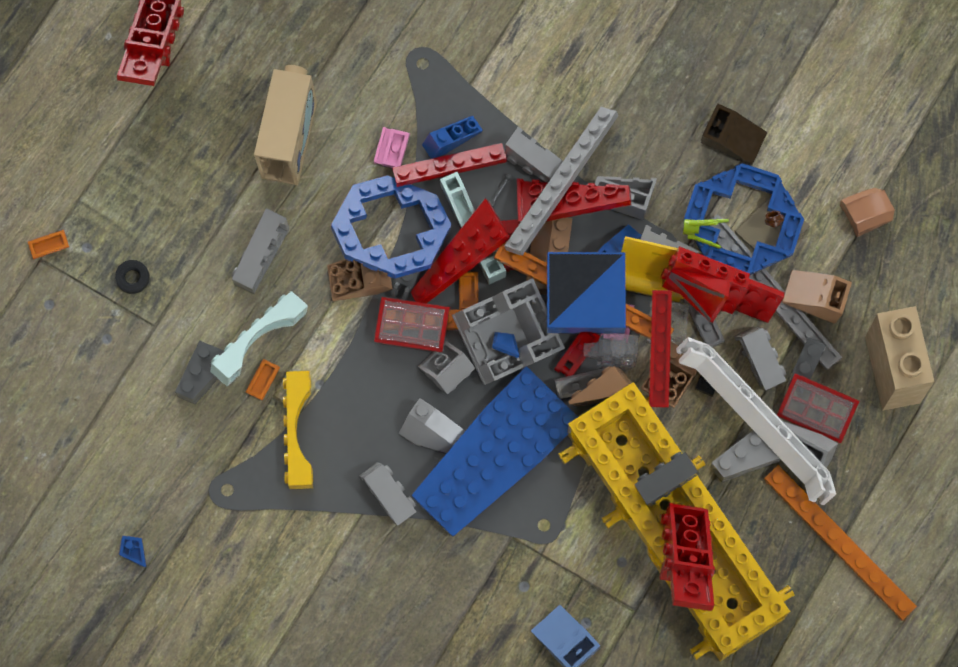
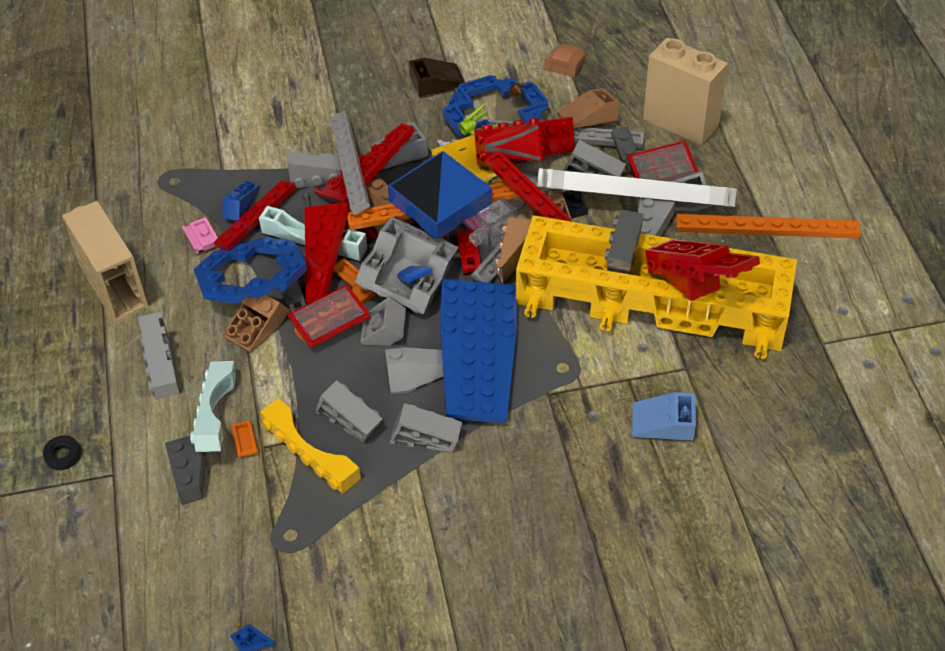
camera: 45 degrees left, 25 degrees down
(349, 428) = (348, 411): none -> light grey wedge

